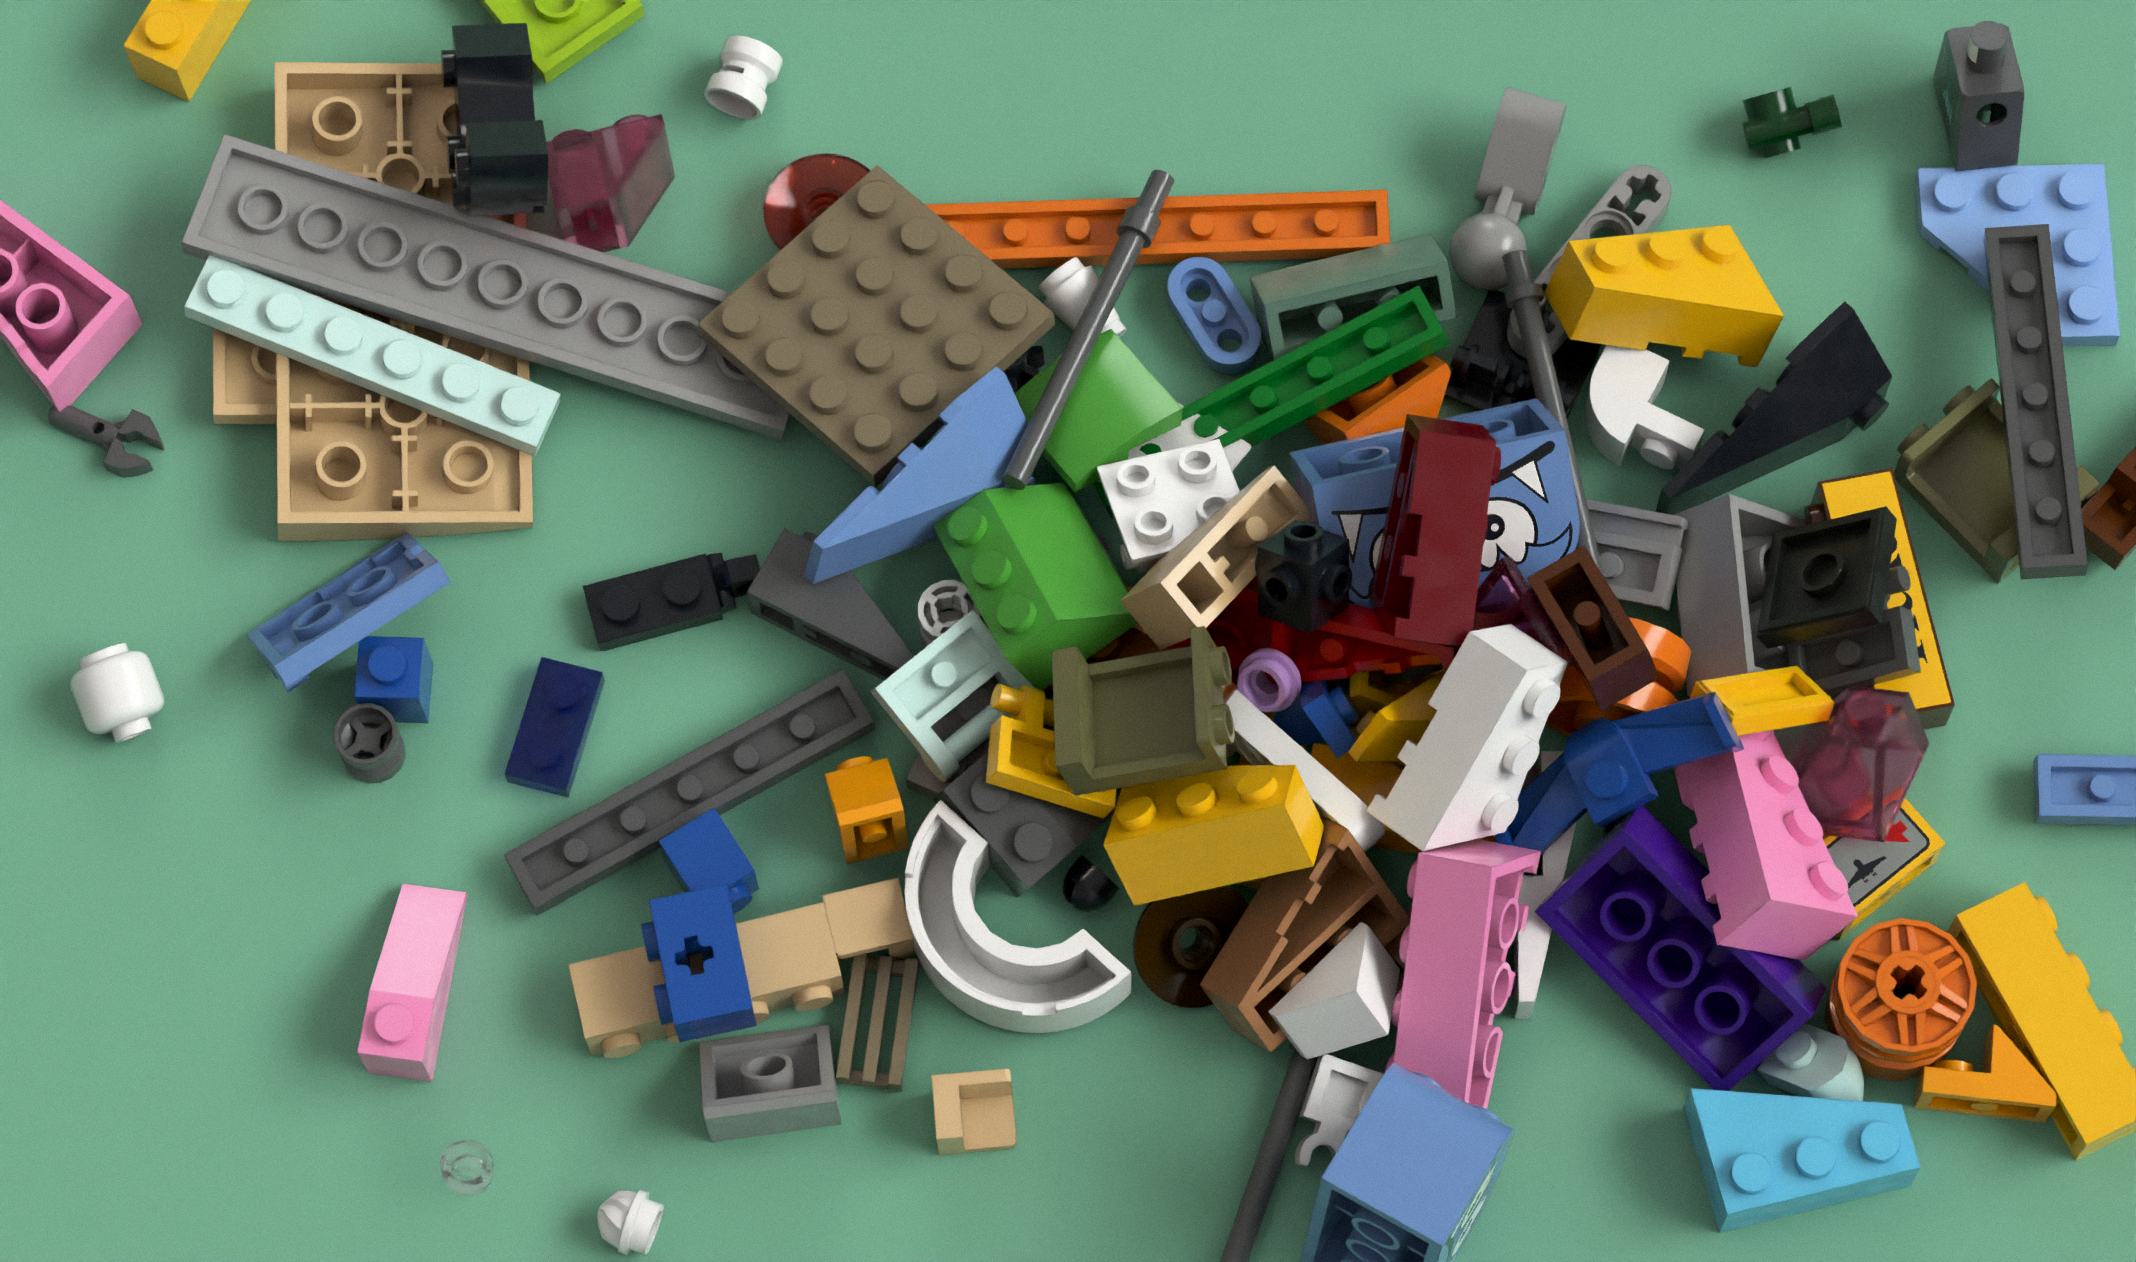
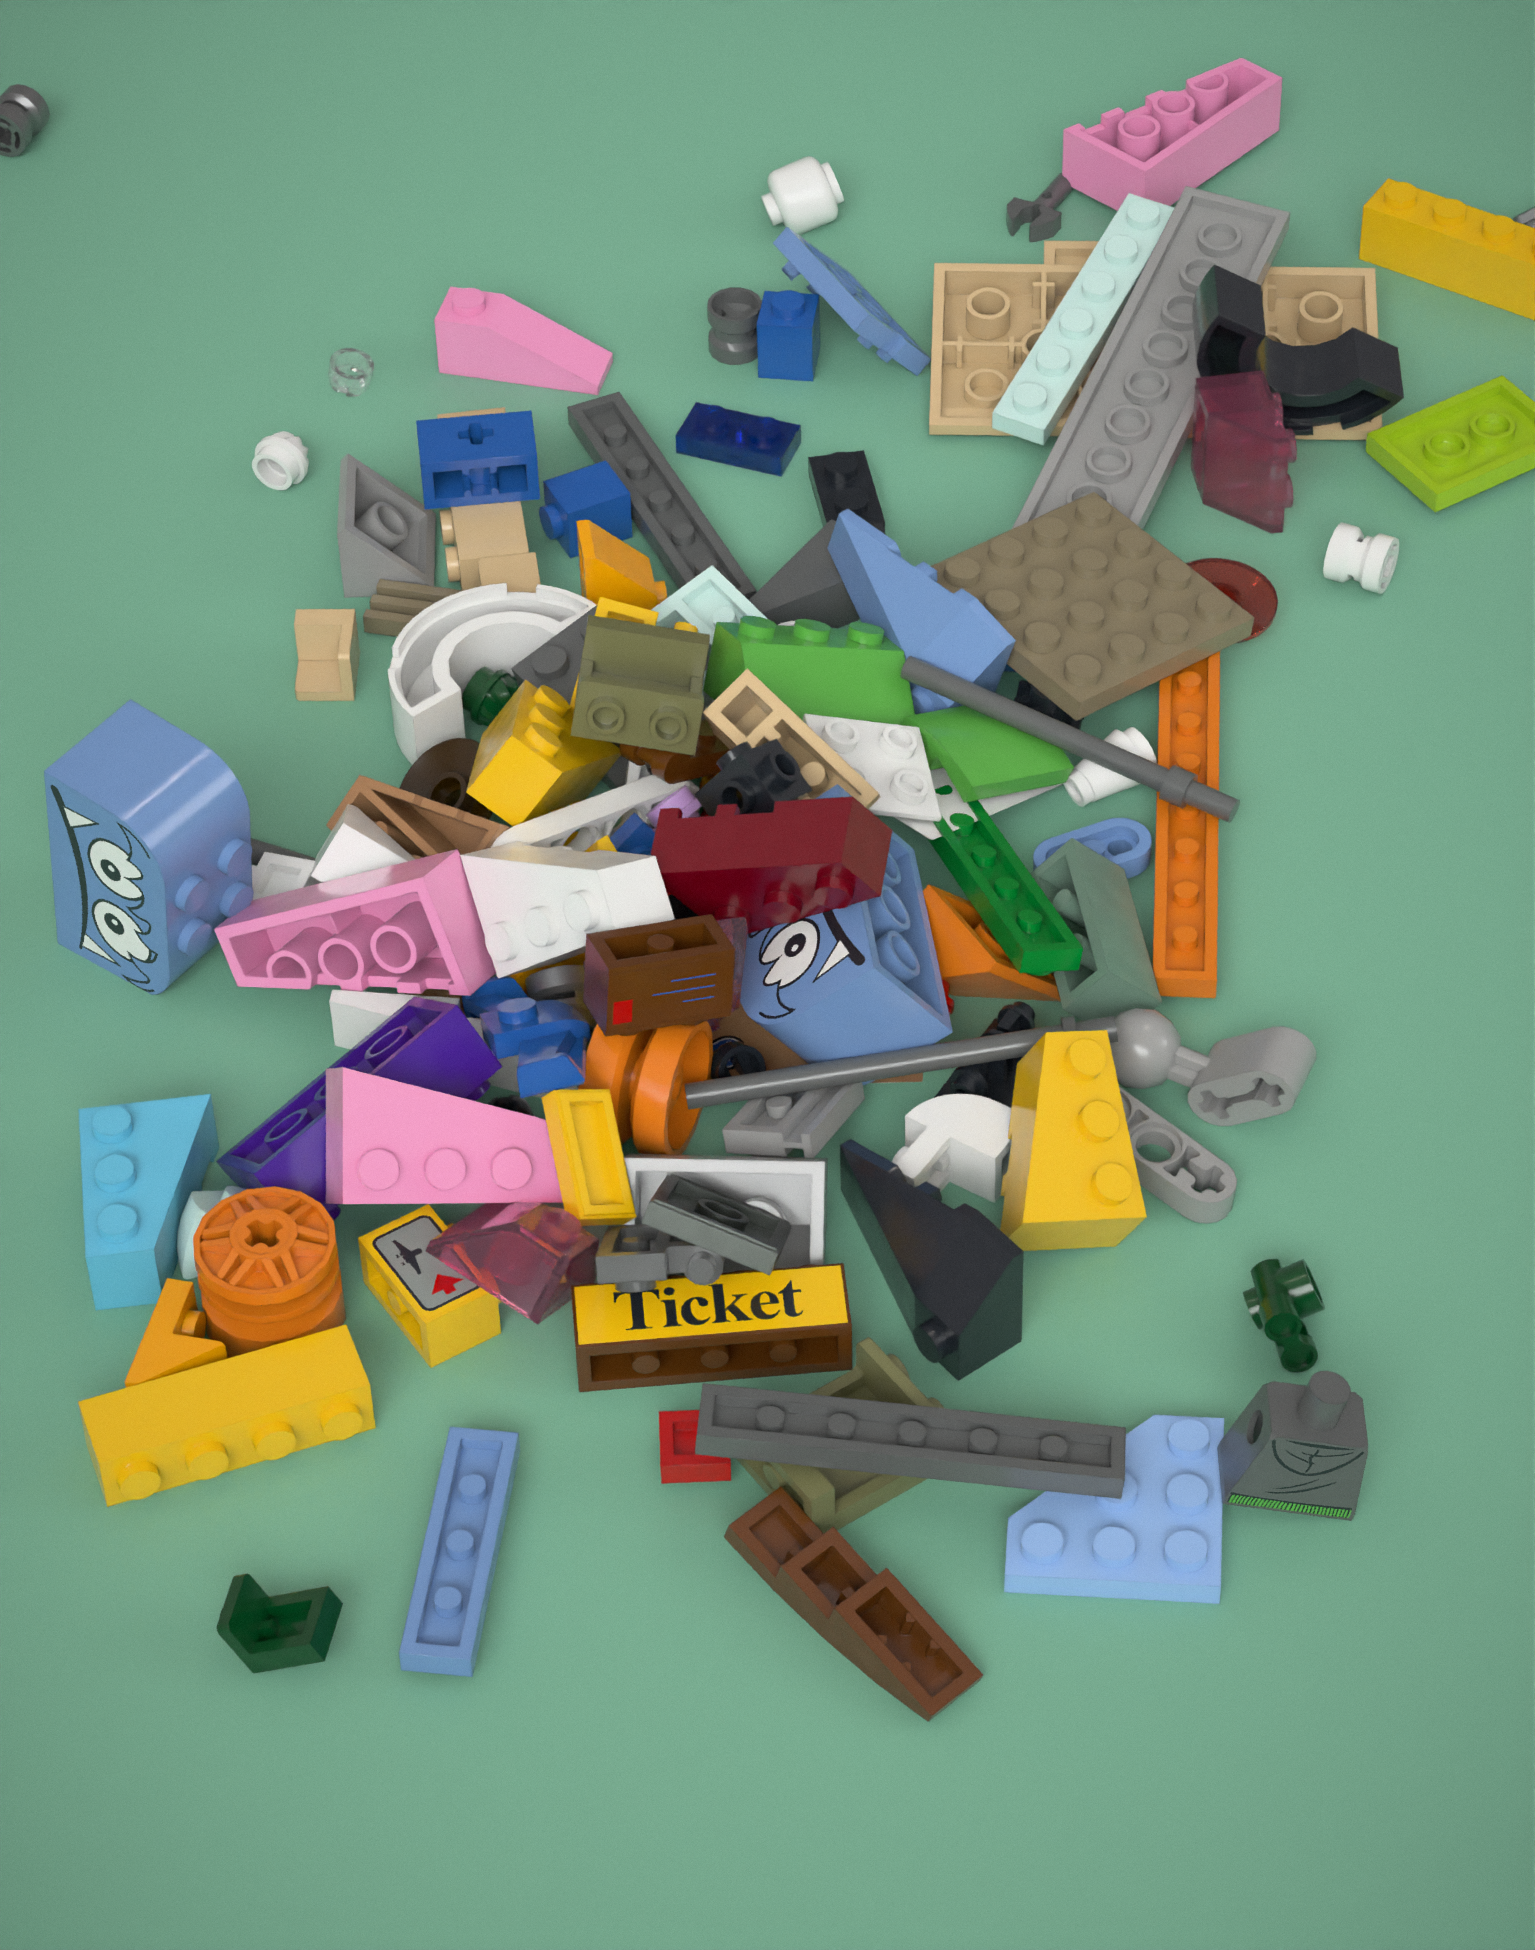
camera: 95 degrees right, 25 degrees down
(1028, 921) = (487, 694): none -> dark green plate
(2016, 607) = (678, 1454): none -> red plate

